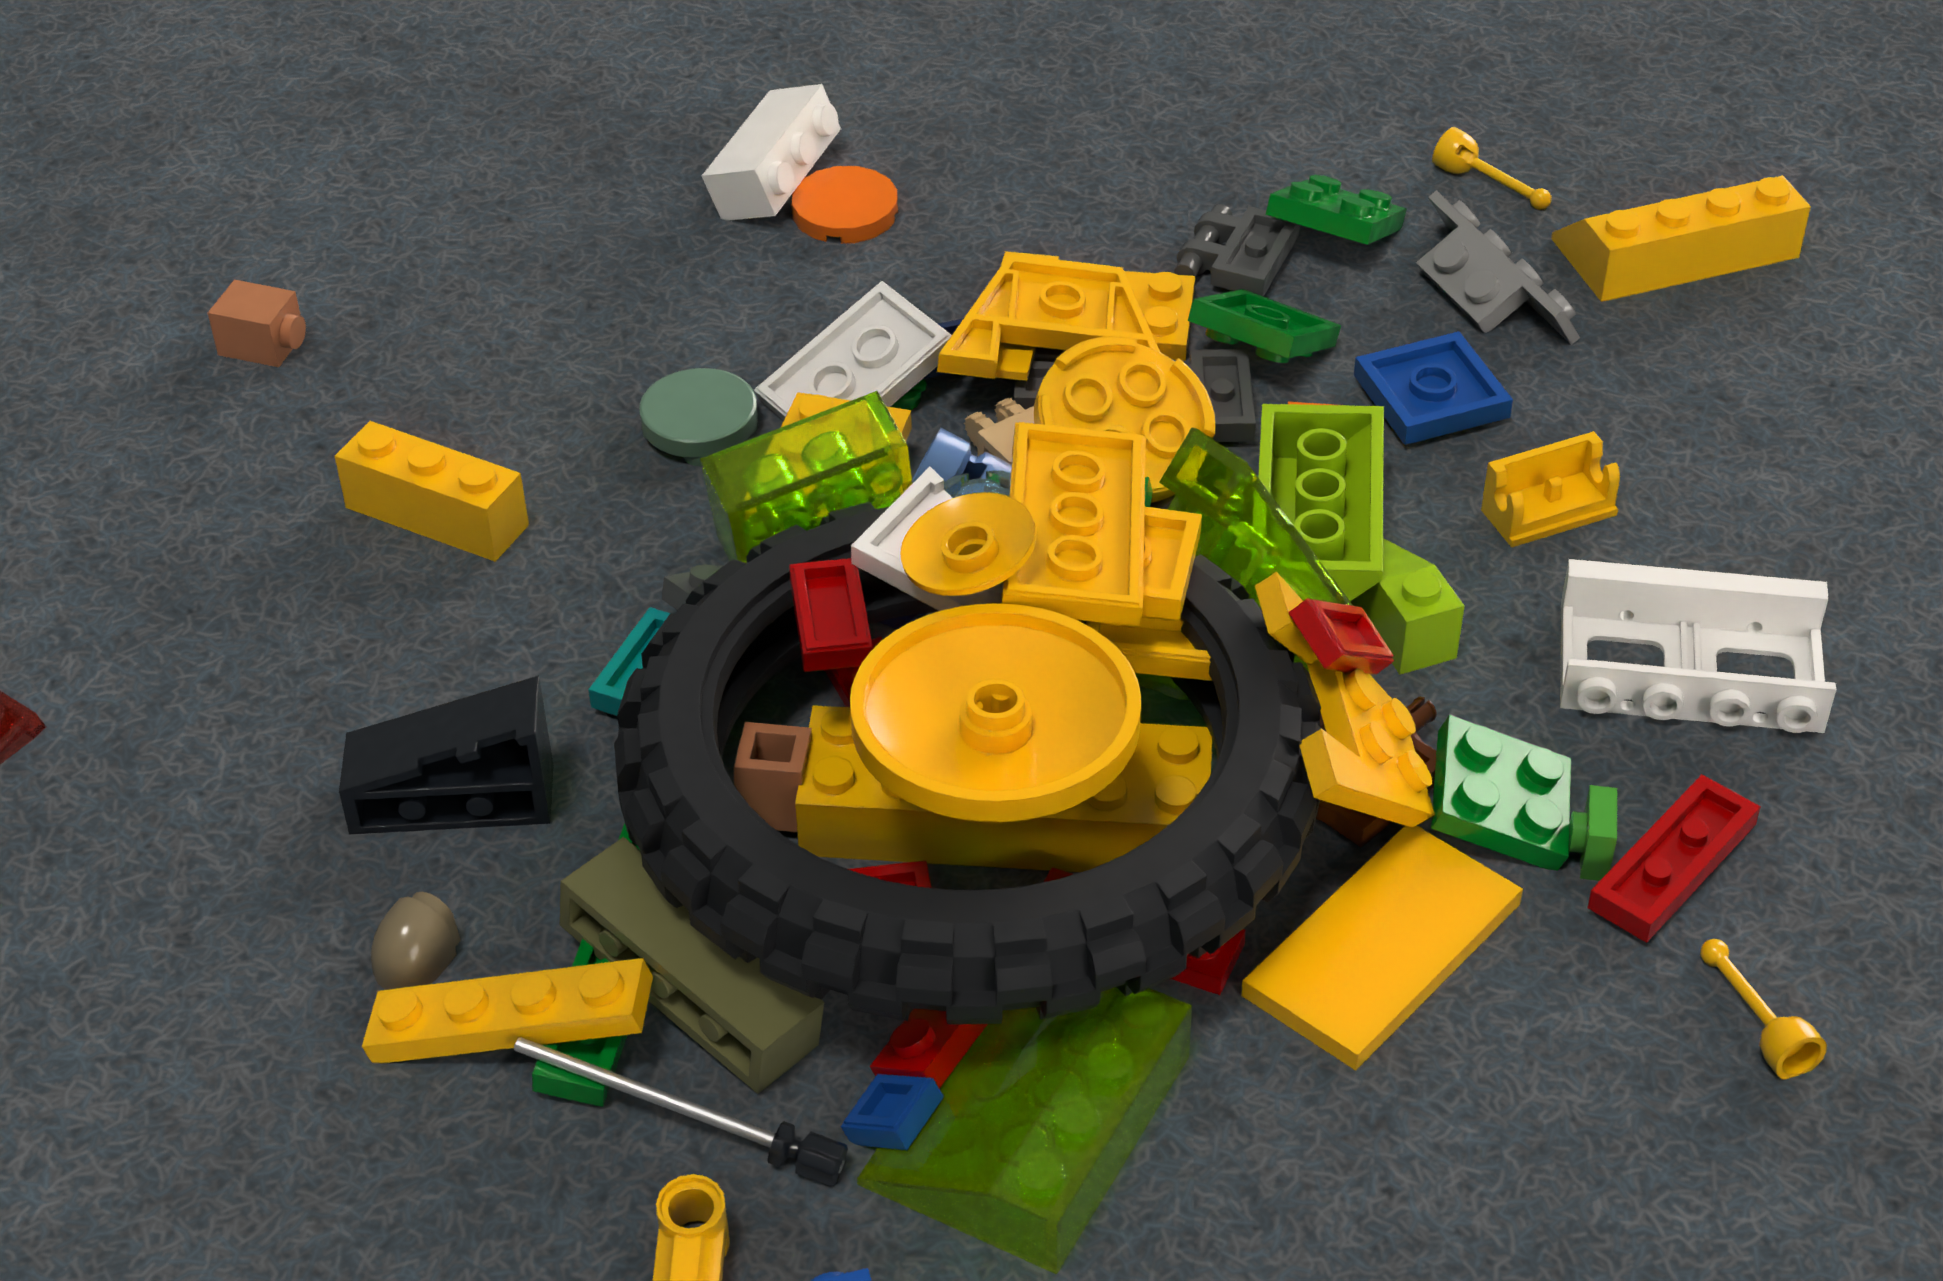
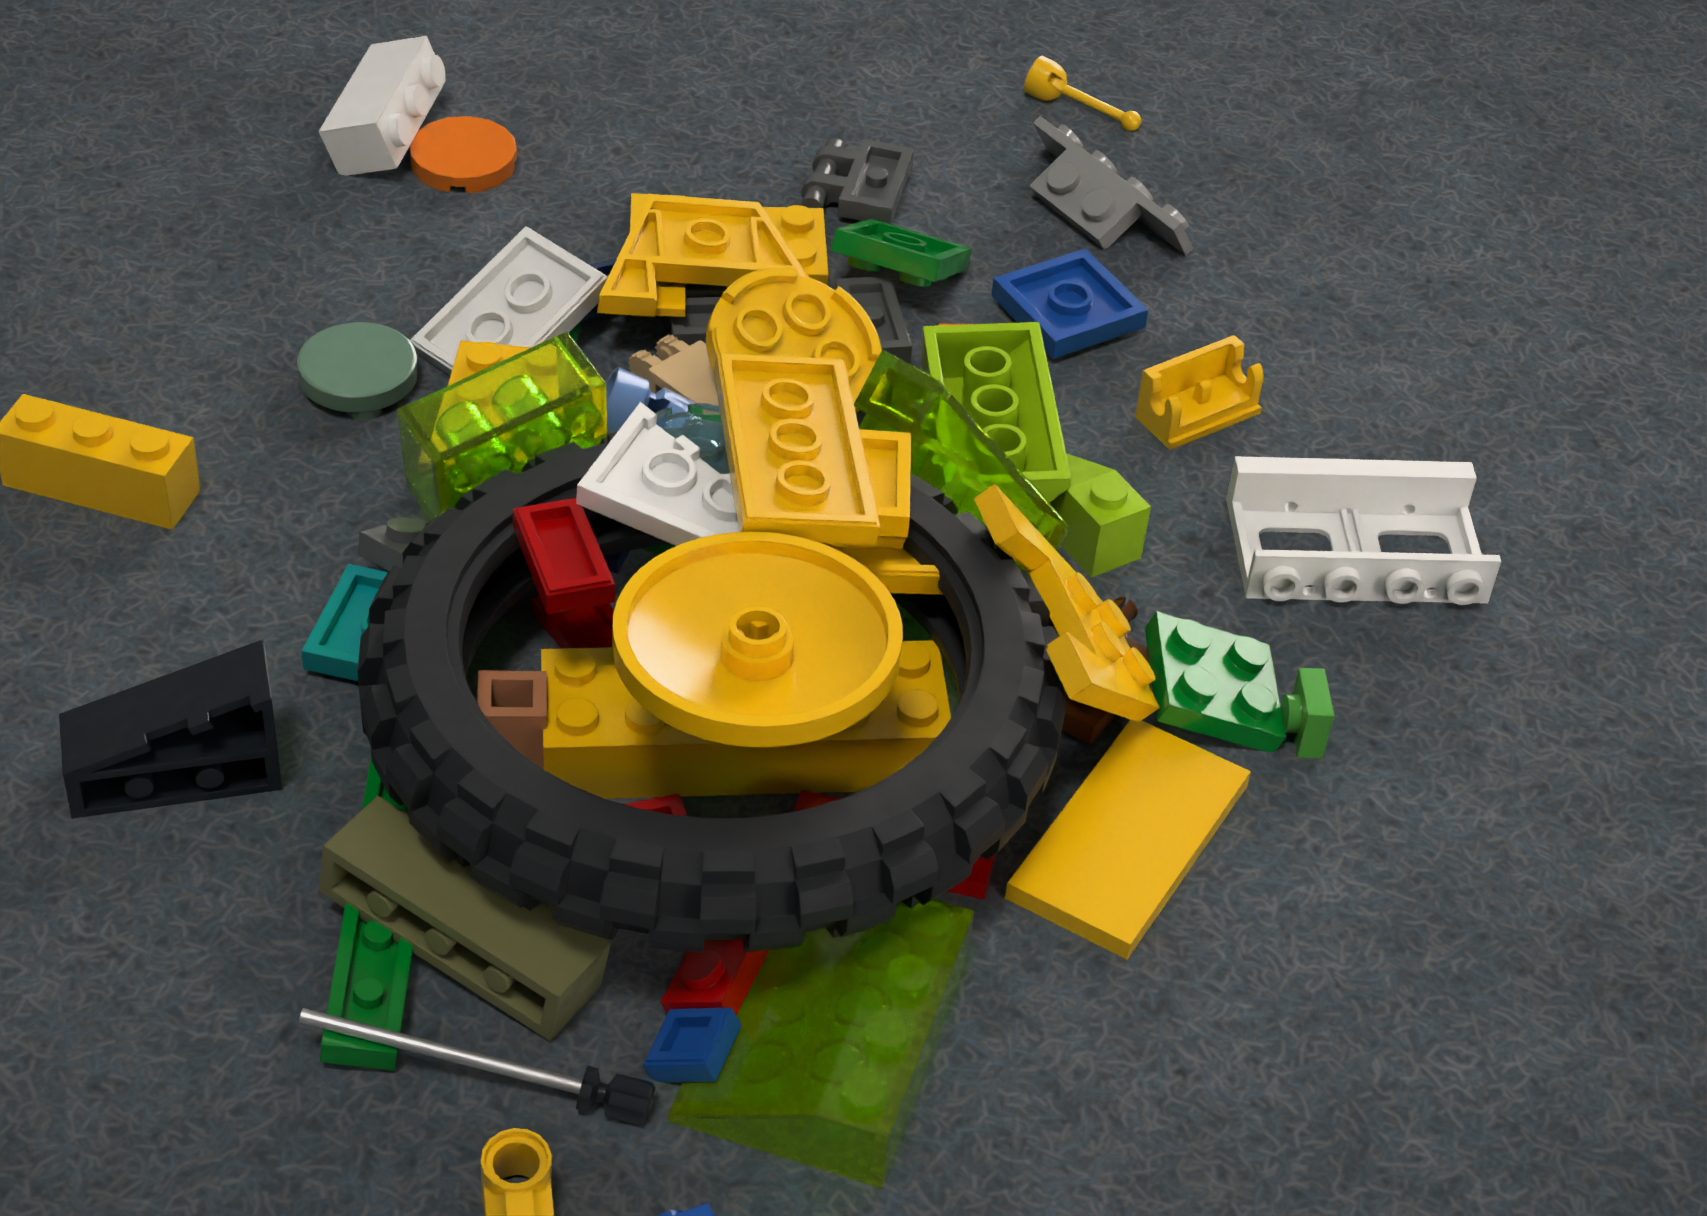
camera: 15 degrees left, 0 degrees up
(414, 942) = (166, 924): dark tan piece -> none
(499, 1009) = (280, 981): yellow plate -> none
(968, 544) = (700, 475): yellow dish -> none
(1327, 208) = (933, 136): green plate -> none
(1342, 636) = (1060, 542): red tile -> none
(1673, 858) = (1381, 731): red plate -> none
(1686, 238) = (1273, 151): yellow wedge -> none
(1787, 1043) = (1518, 894): yellow hinge -> none

